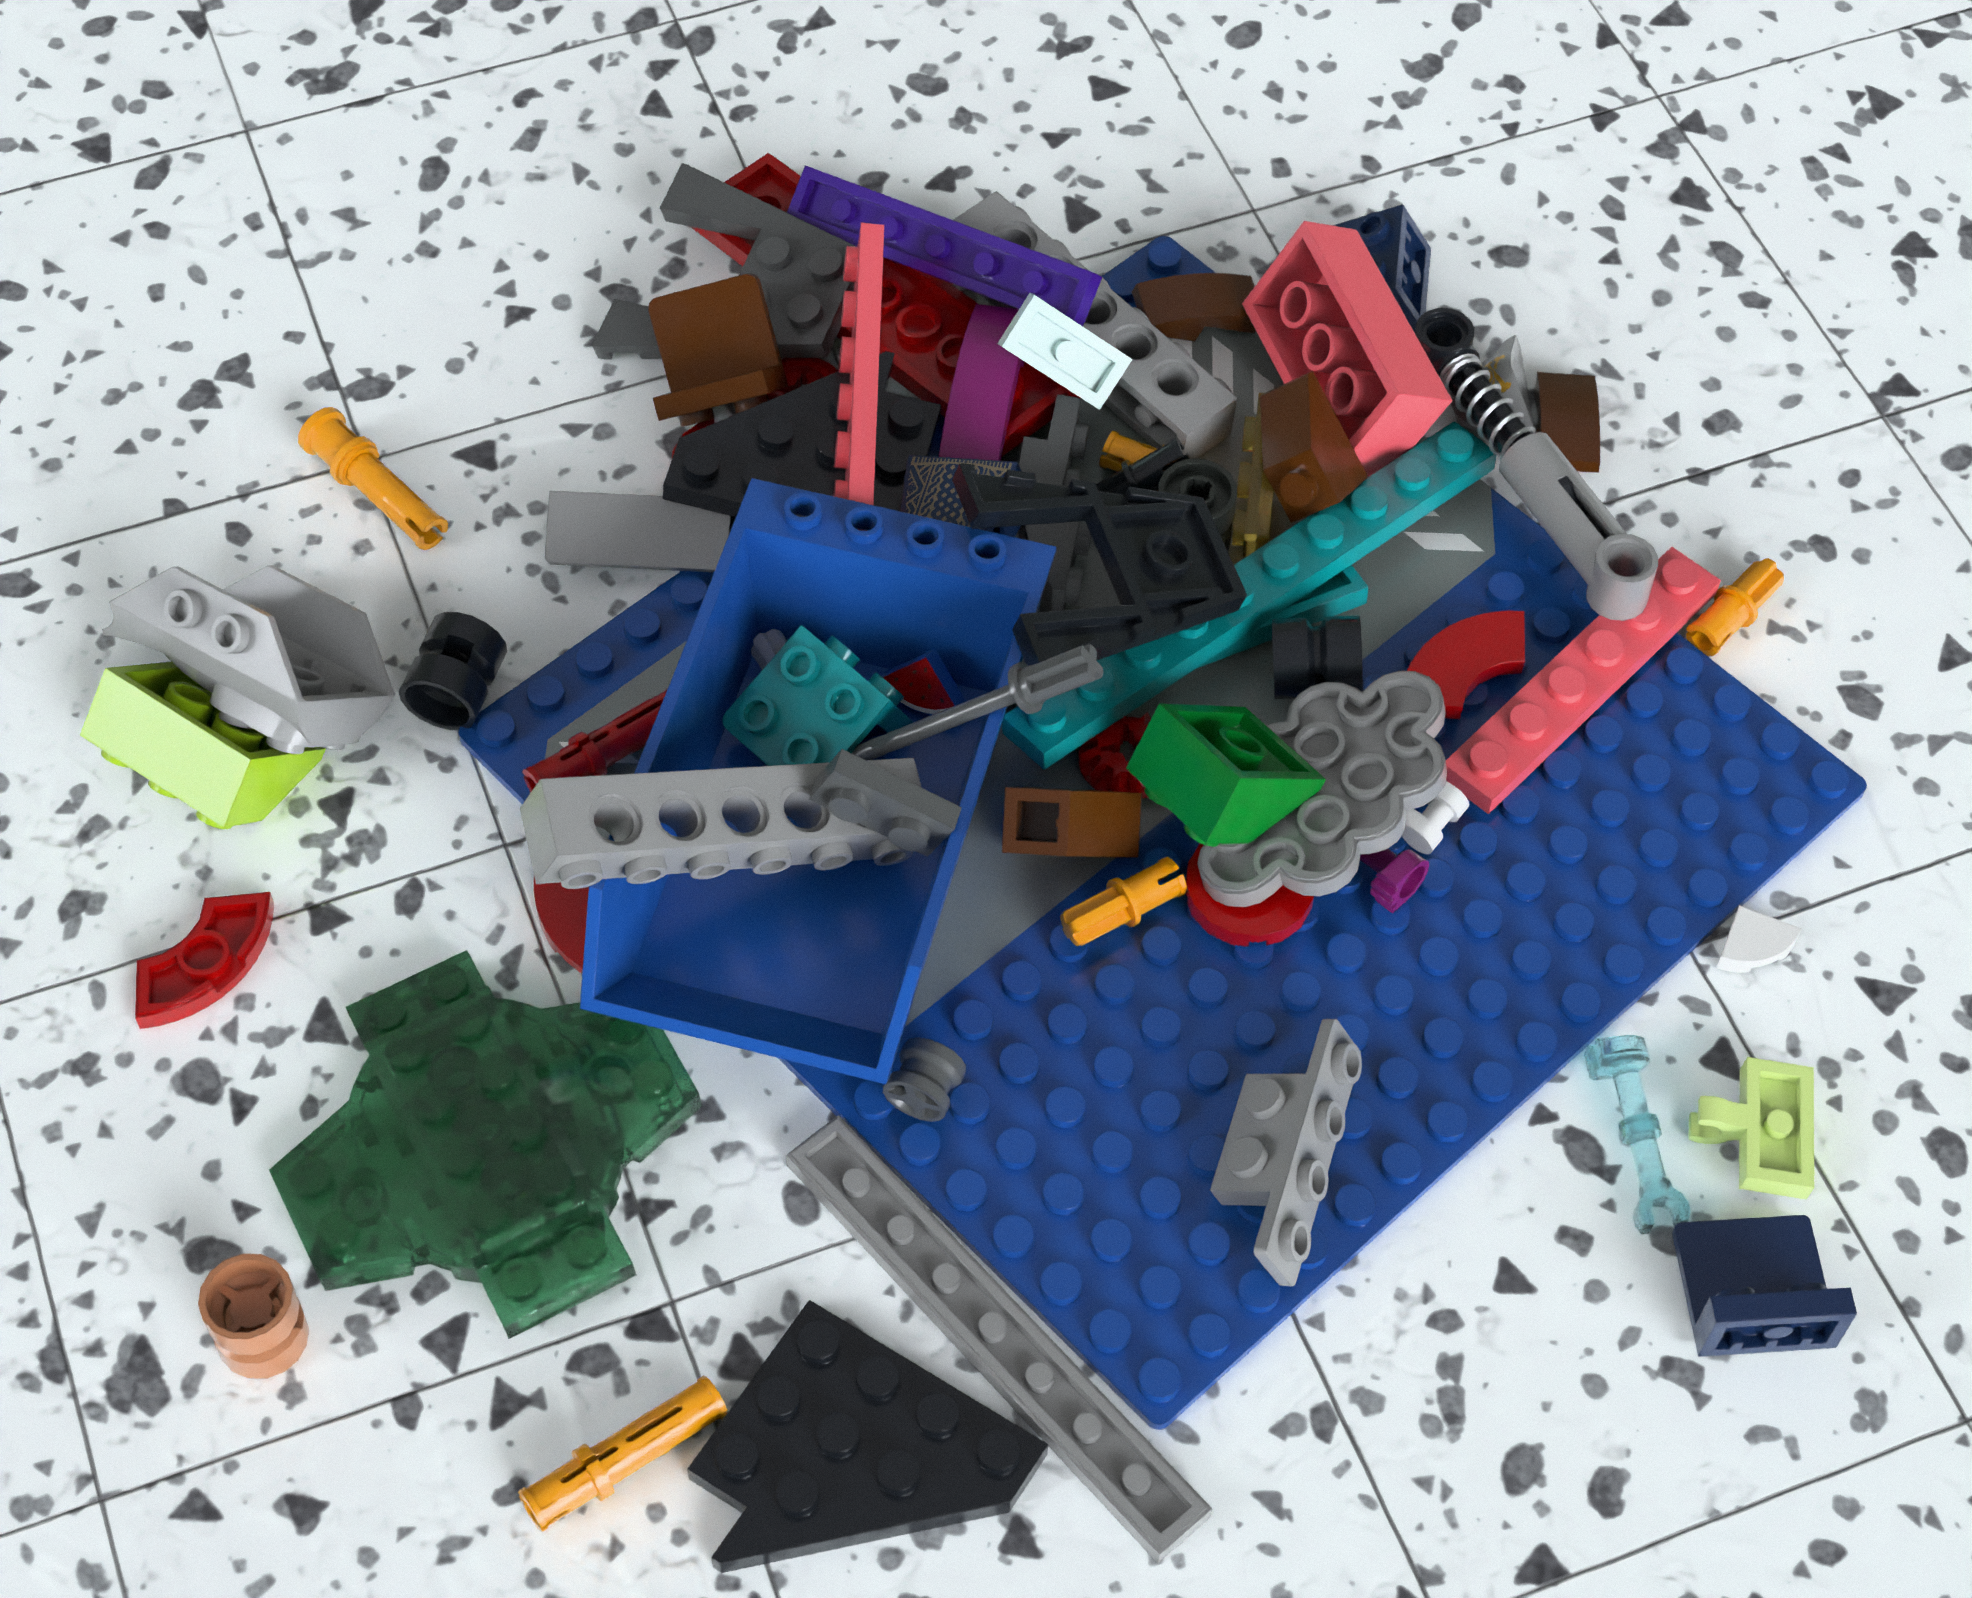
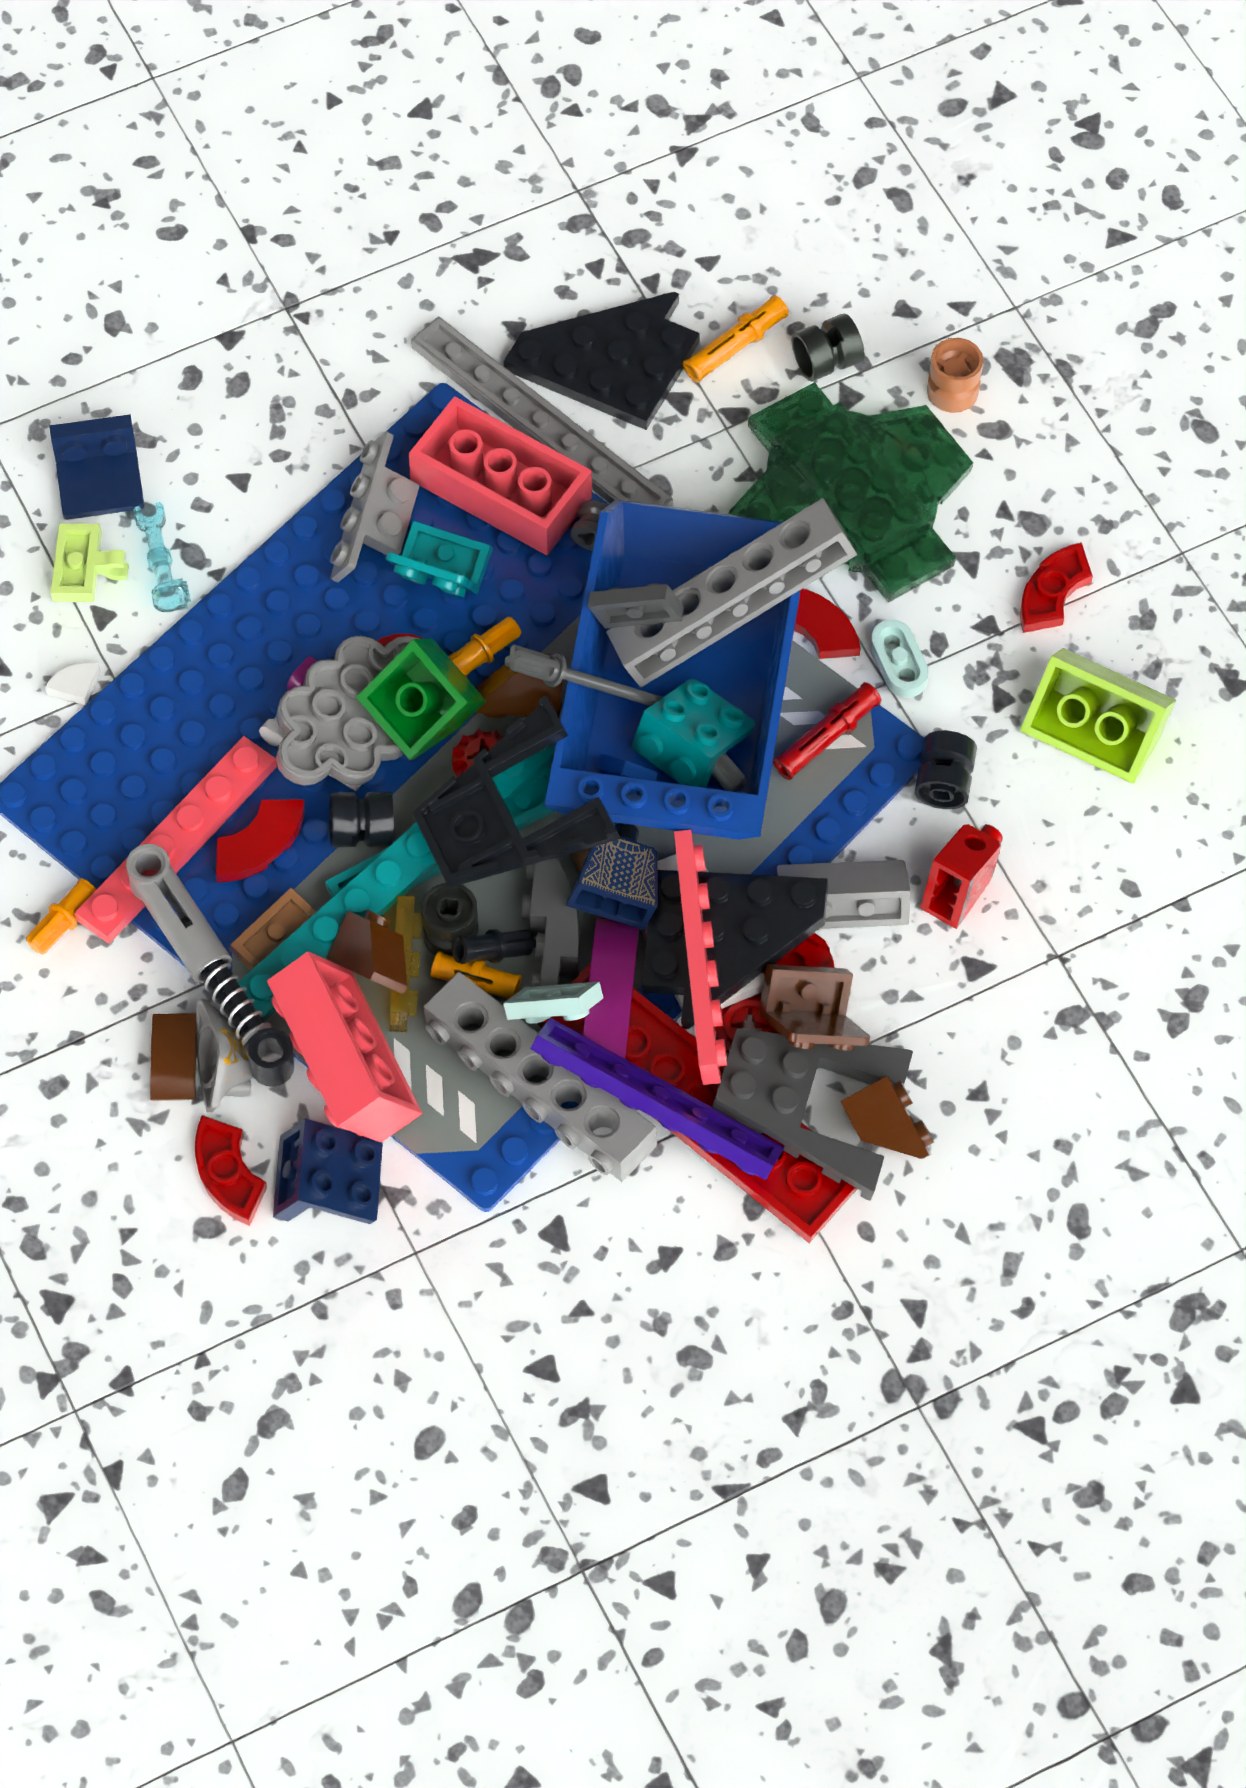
camera: 175 degrees right, 5 degrees up
(267, 652) = (1082, 753): light grey slope -> none
(357, 463) = (1059, 932): light orange pin -> none
(463, 1399) = (833, 345): none -> pearl dark grey wheel
(466, 524) = (970, 858): none -> red torso
(478, 859) = (899, 662): none -> light aqua plate
(646, 252) = (883, 1119): none -> reddish brown slope
(1075, 1161) = (500, 475): none -> coral brick
(1189, 302) = (456, 1118): reddish brown slope -> none
(1190, 1010) = (446, 558): none -> teal bracket
(1436, 544) = (271, 929): none -> medium nougat plate
(1489, 298) = (224, 1172): none -> red tile

